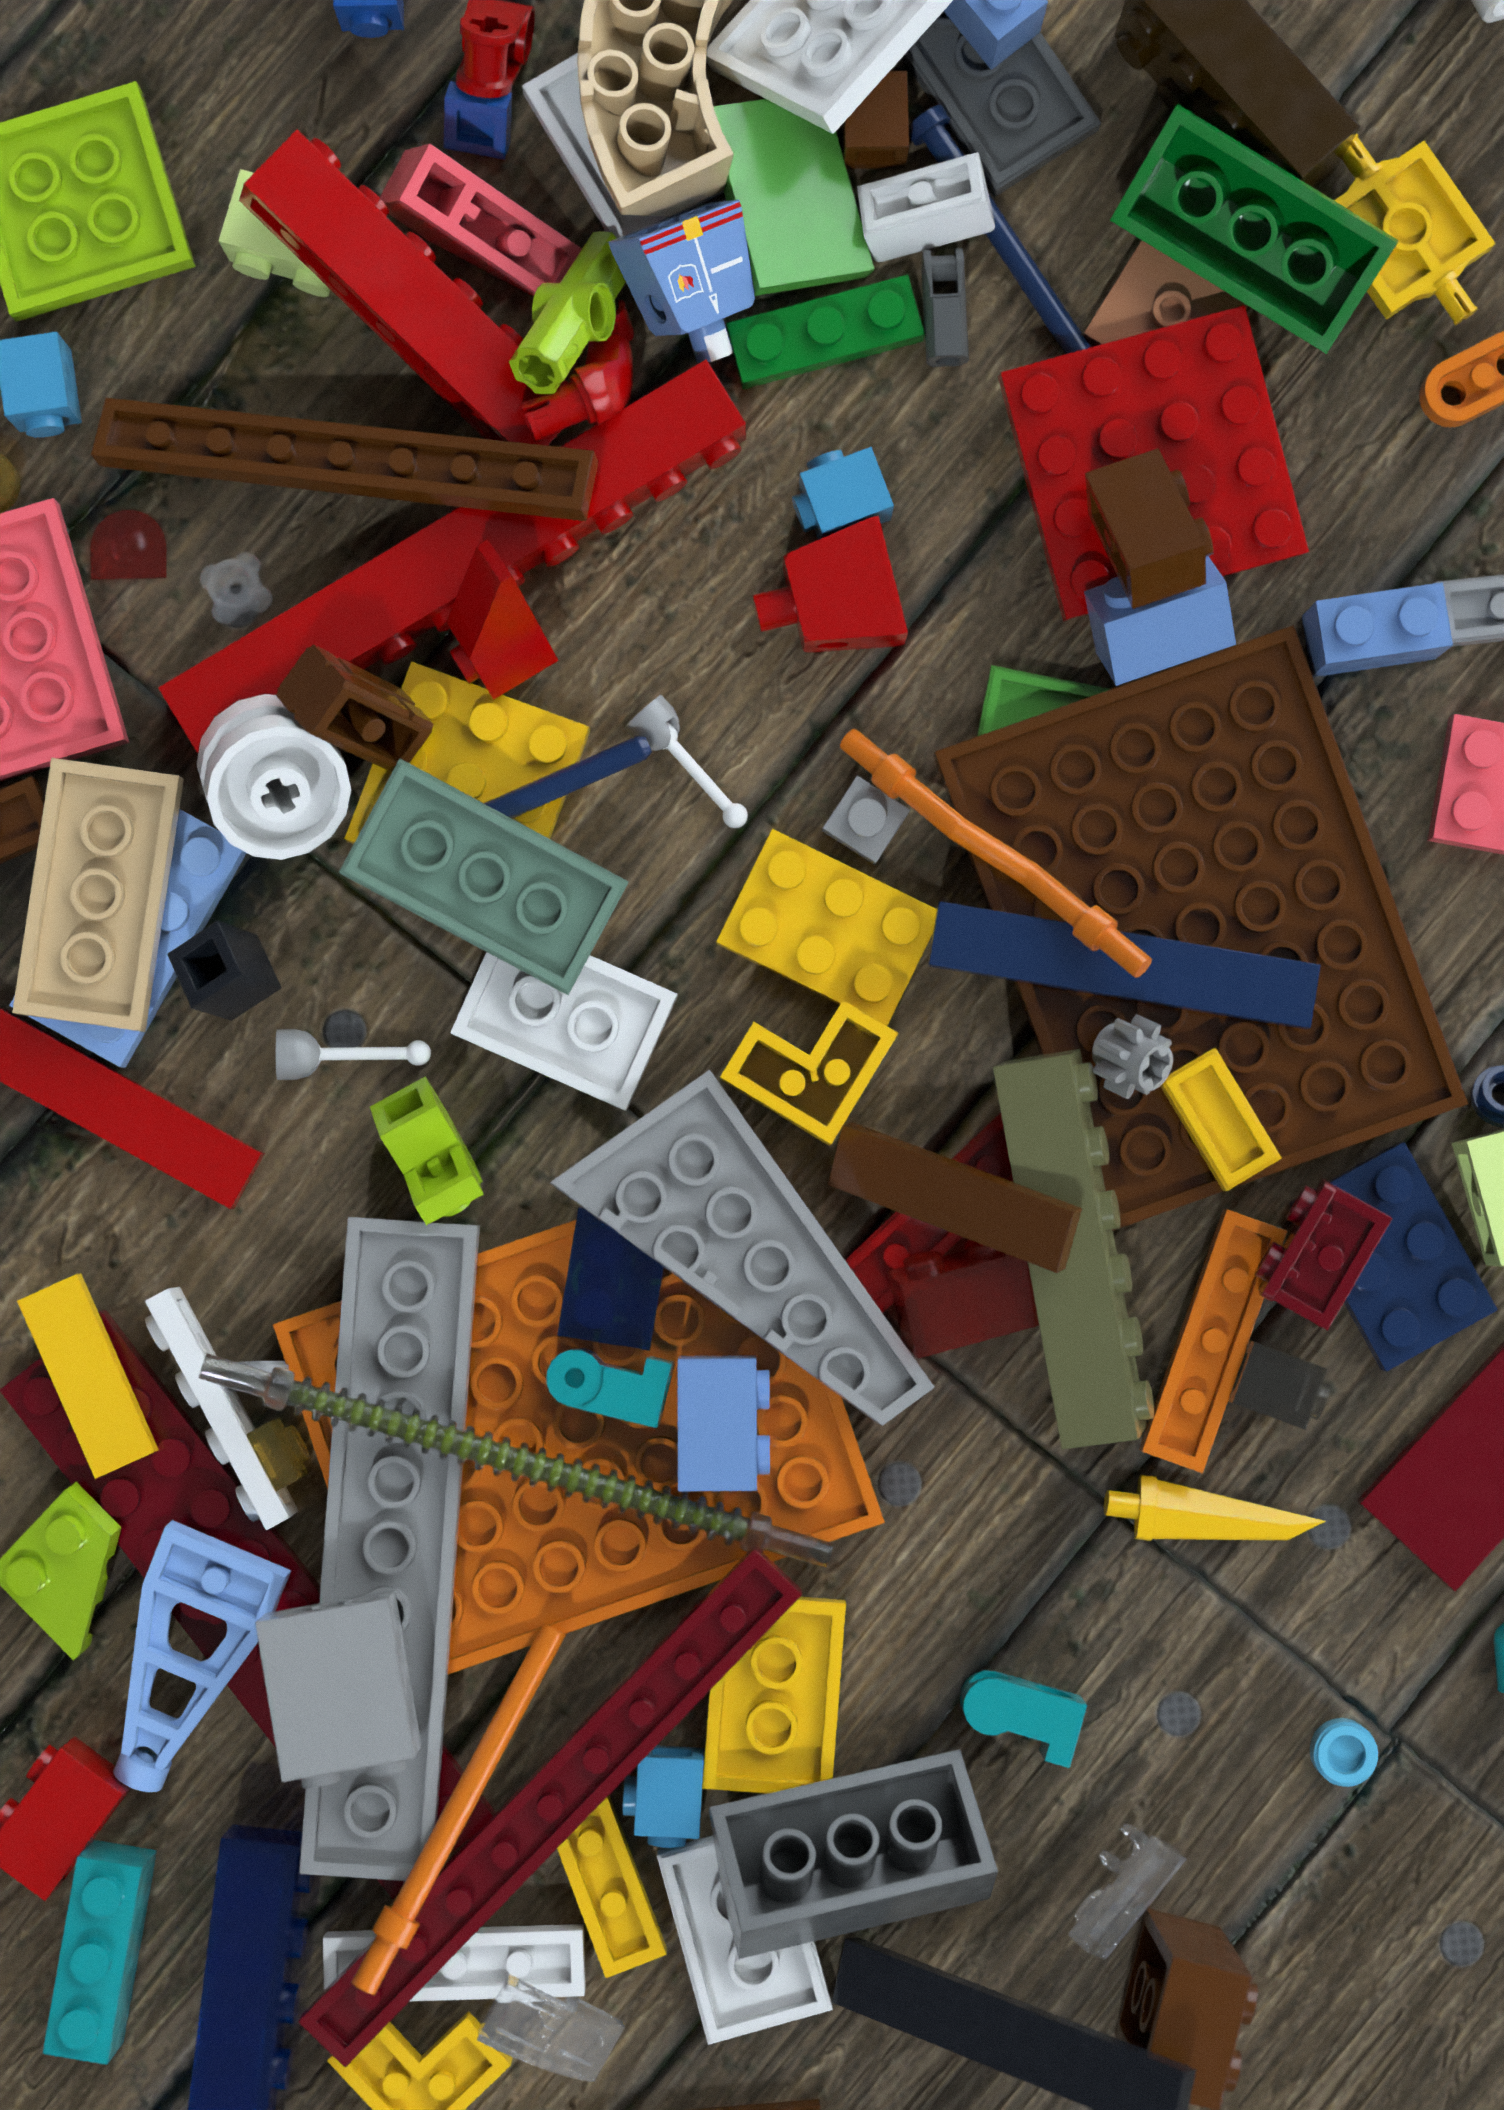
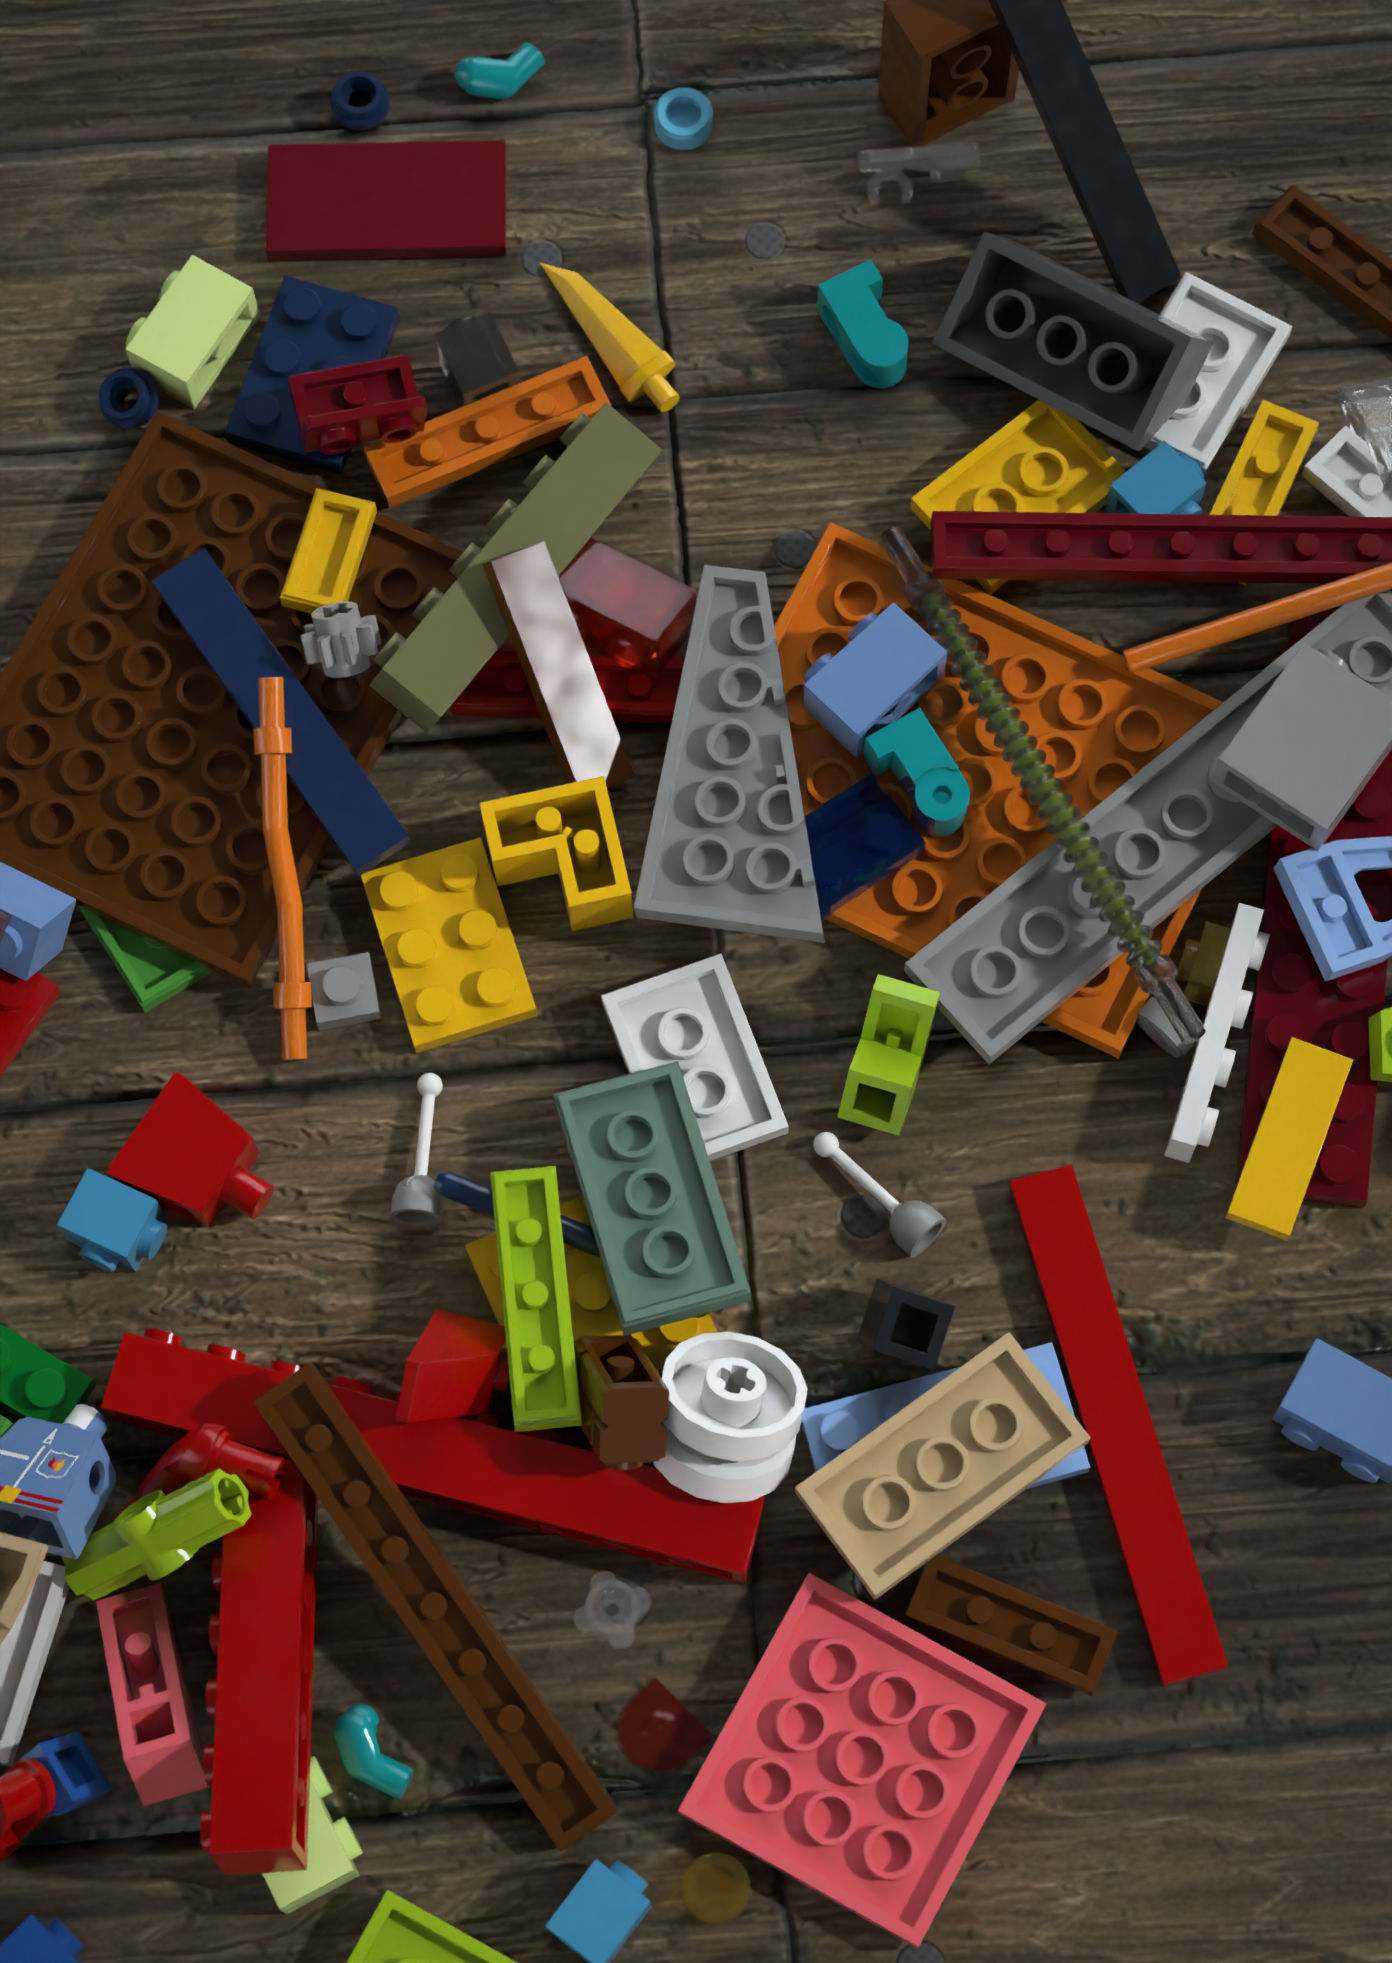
camera: 130 degrees left, 15 degrees down
(299, 329) = (361, 1753): none -> teal arm
(486, 723) = (535, 1299): none -> lime tile

